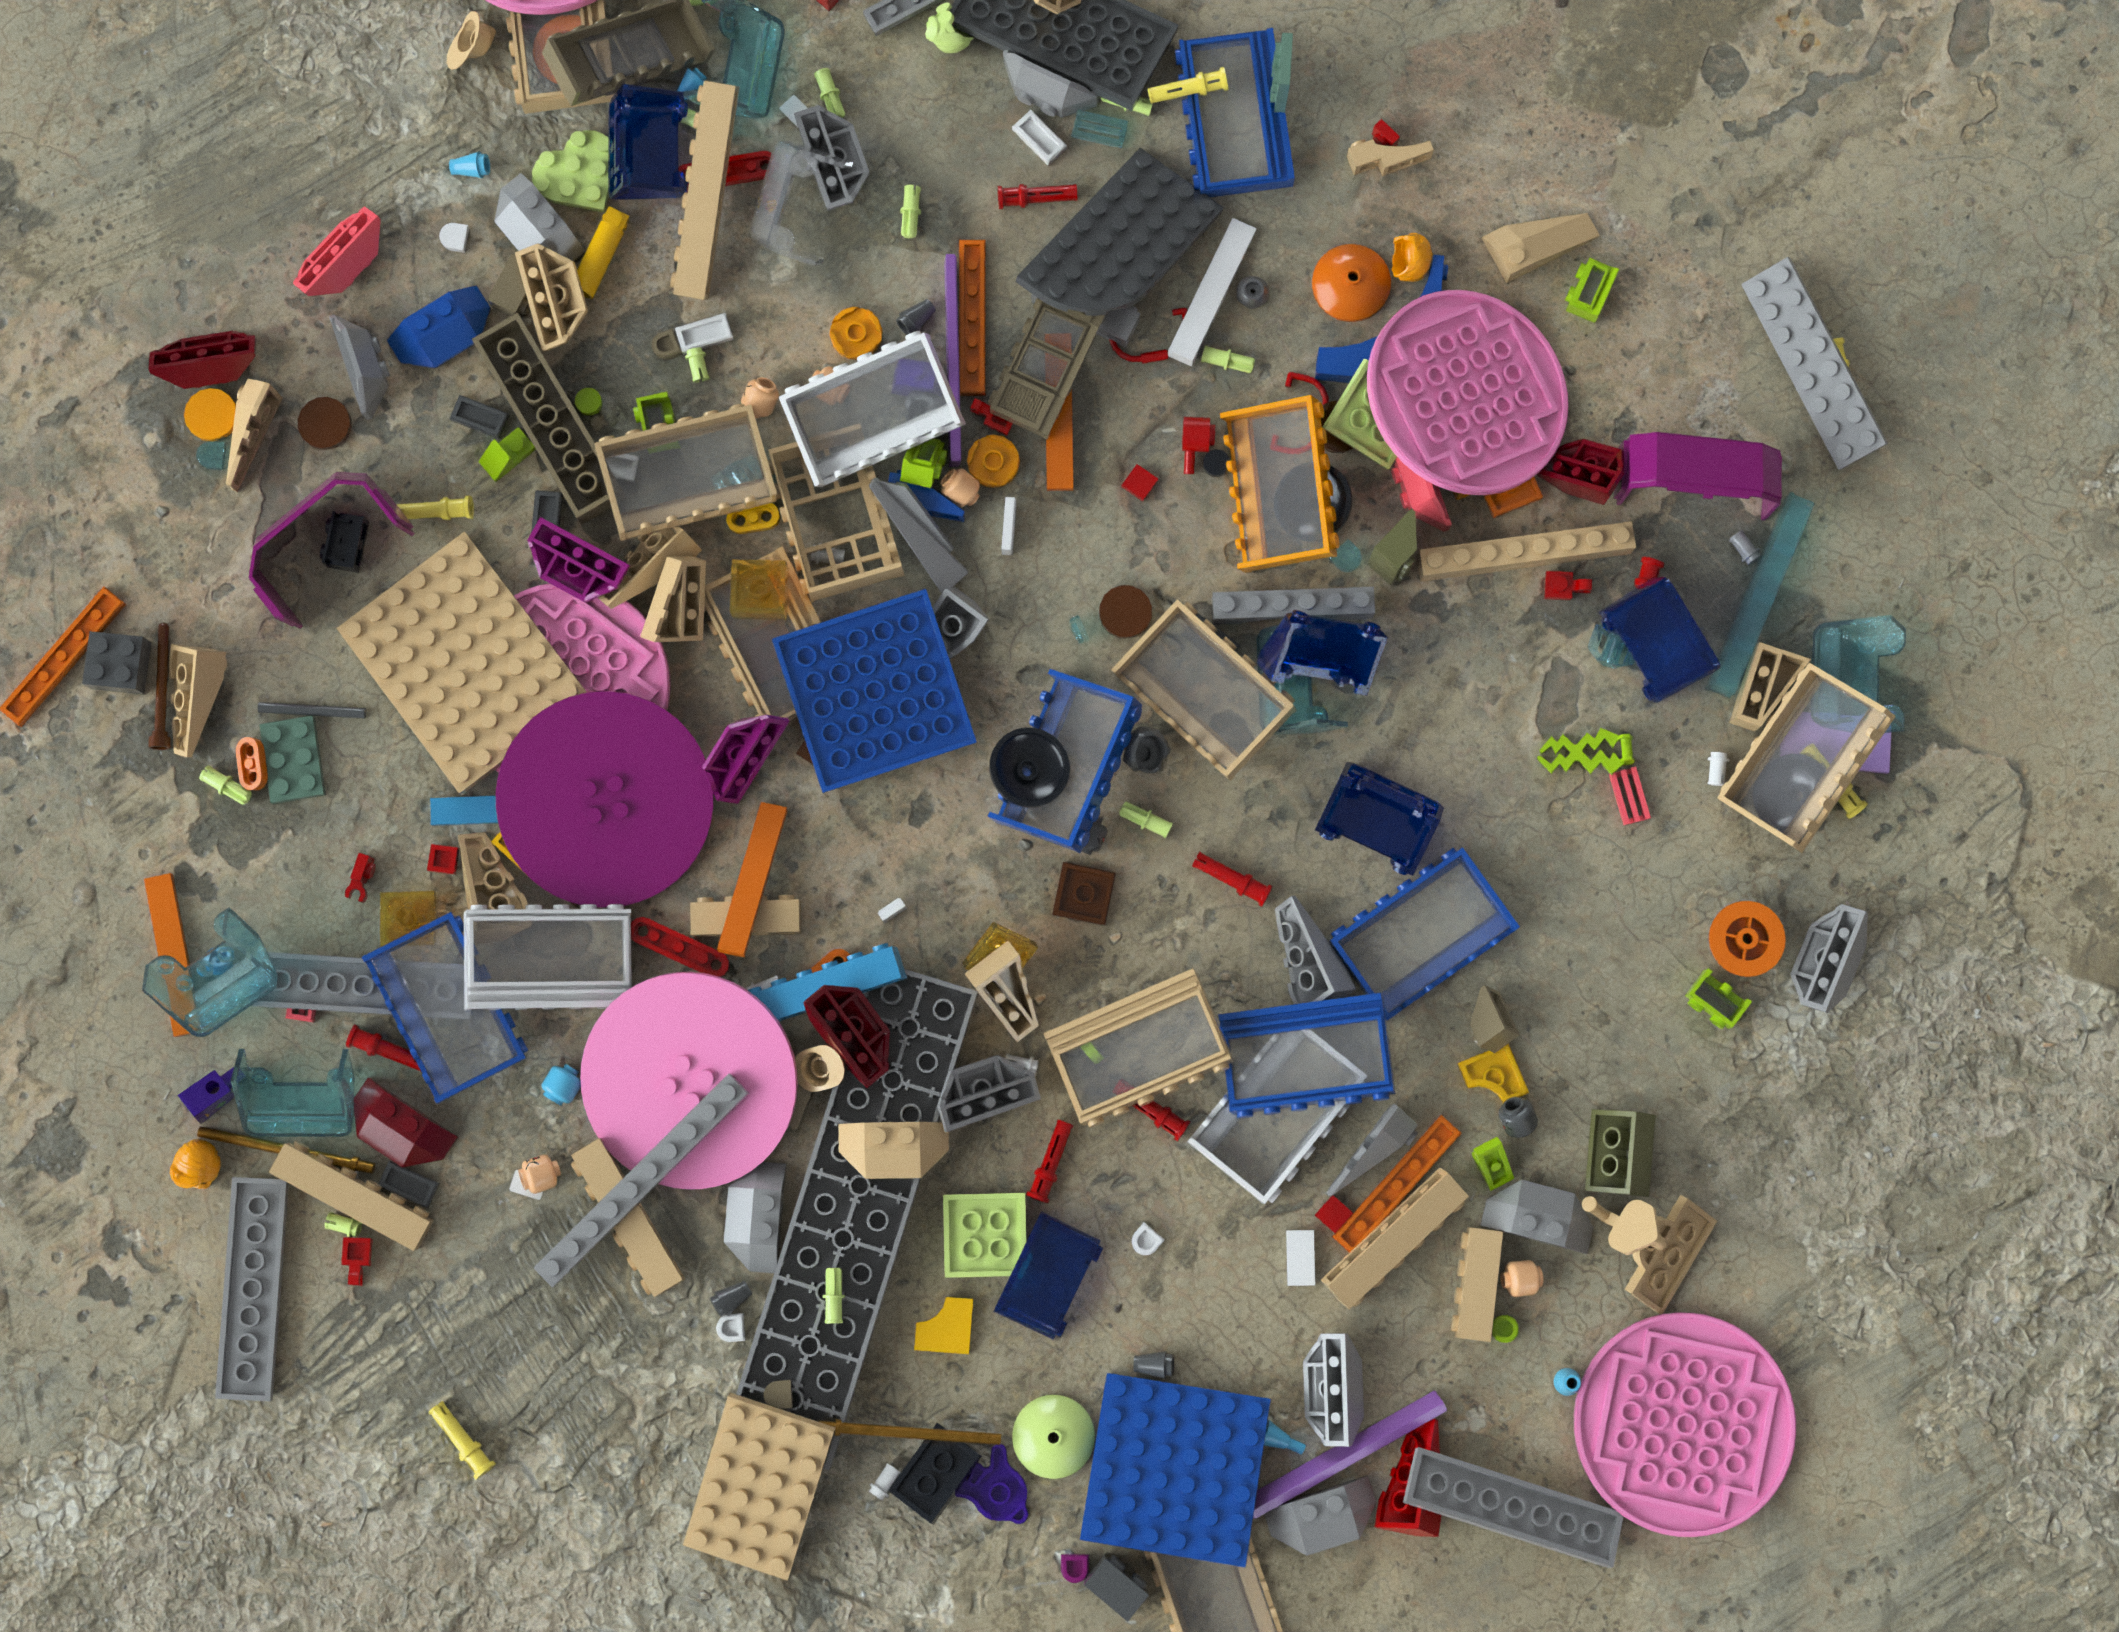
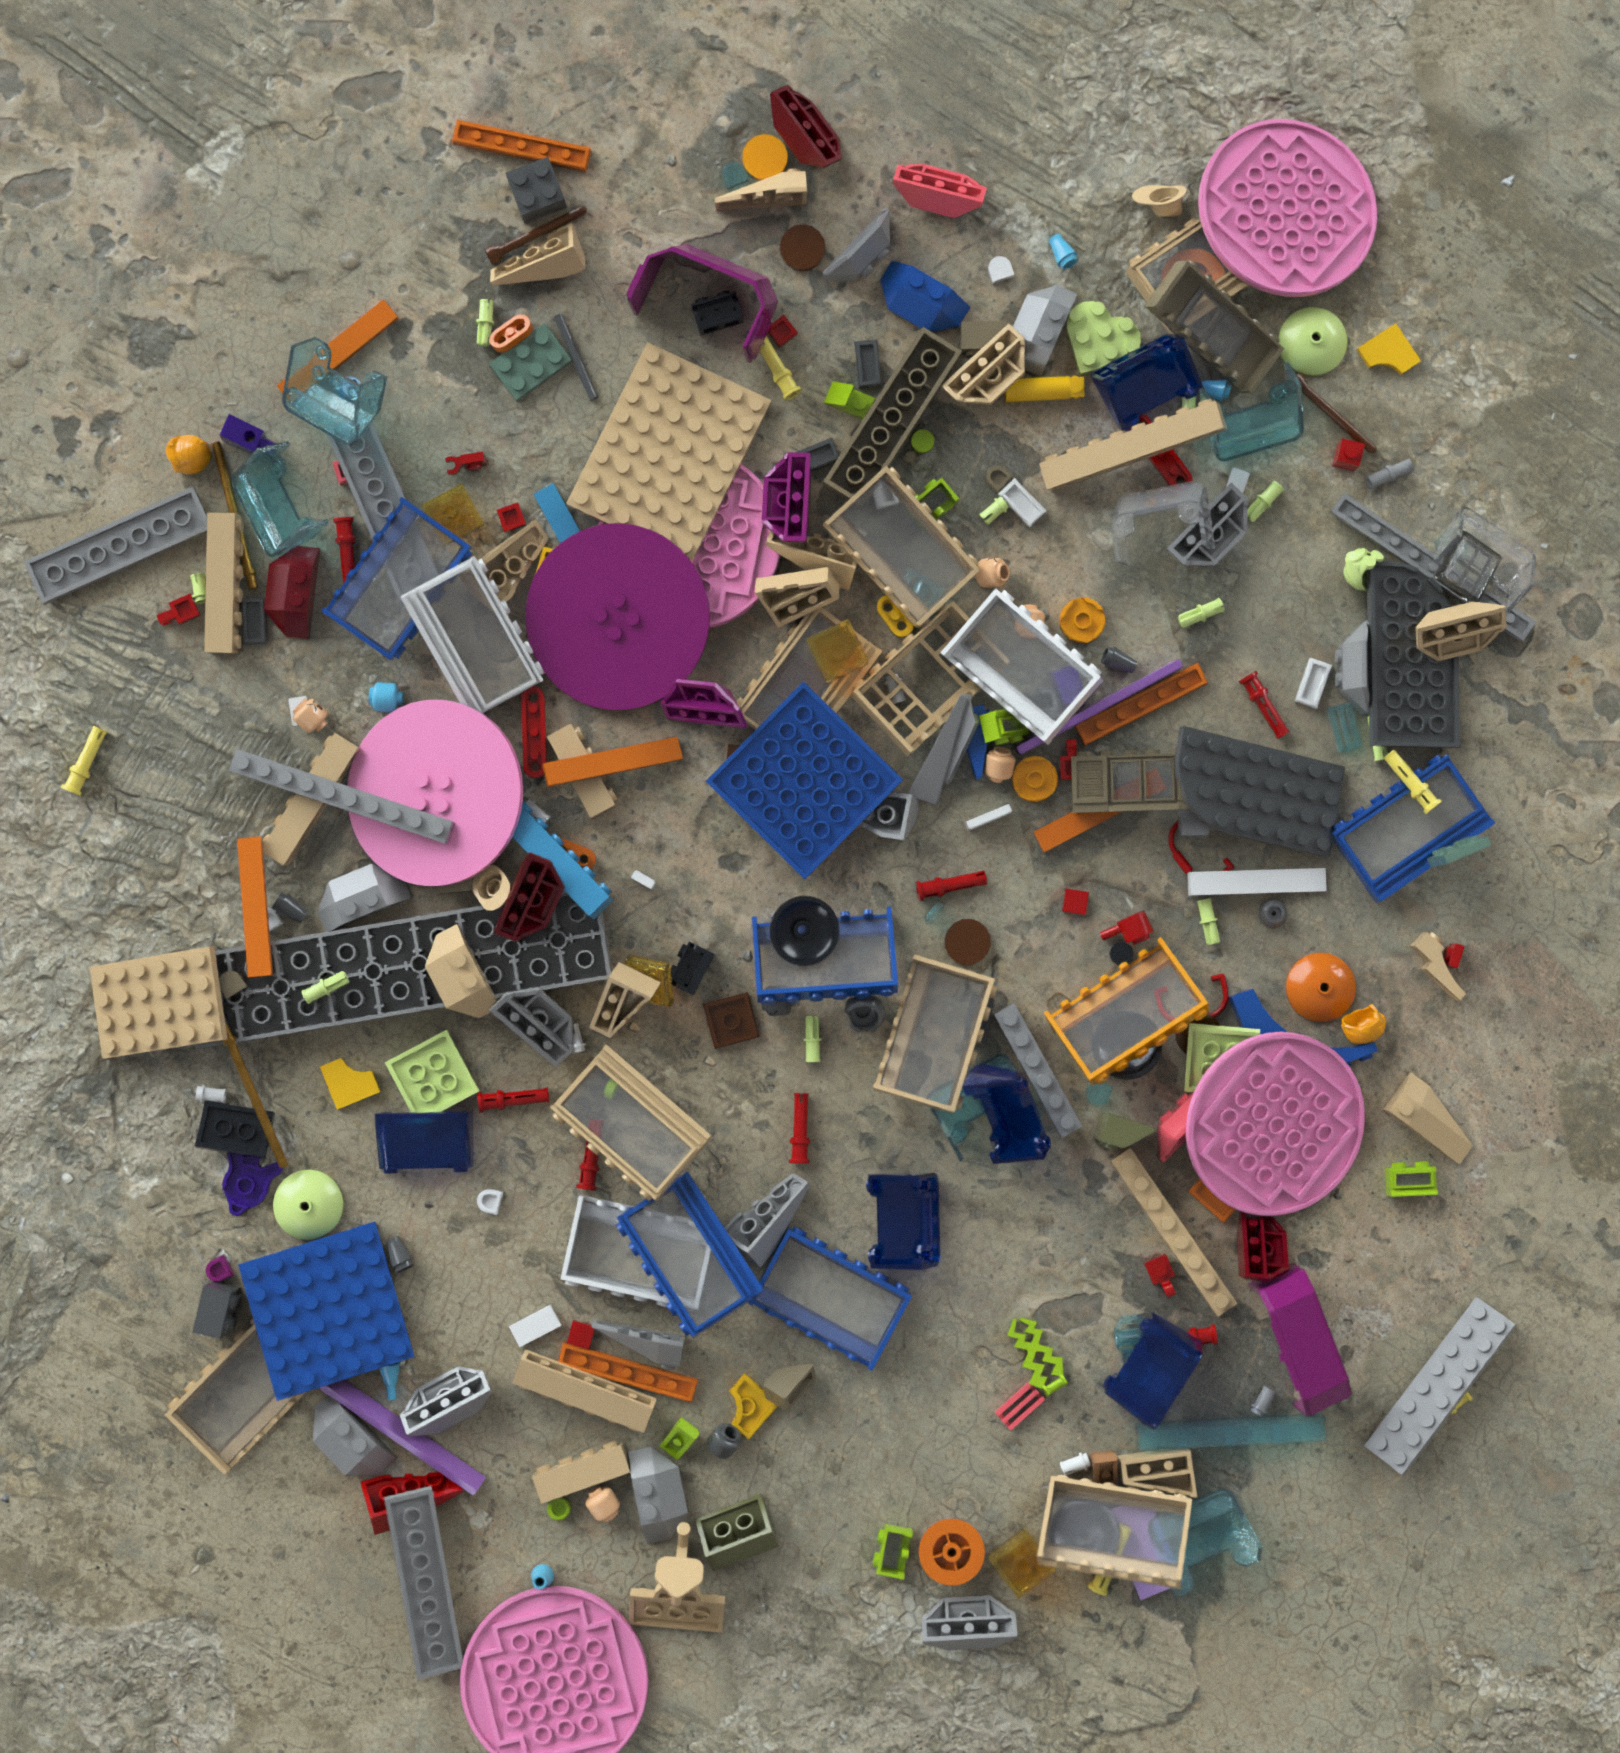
camera: 60 degrees right, 5 degrees up
(399, 486) = (782, 331): none -> red tile
(711, 1330) = (254, 907): none -> orange tile
(1008, 906) = (691, 967): none -> black hinge
(1054, 610) = (940, 886): none -> red pin
(1734, 739) = (1104, 1467): none -> medium nougat slope
(1792, 874) = (1018, 1562): none -> clear yellow brick

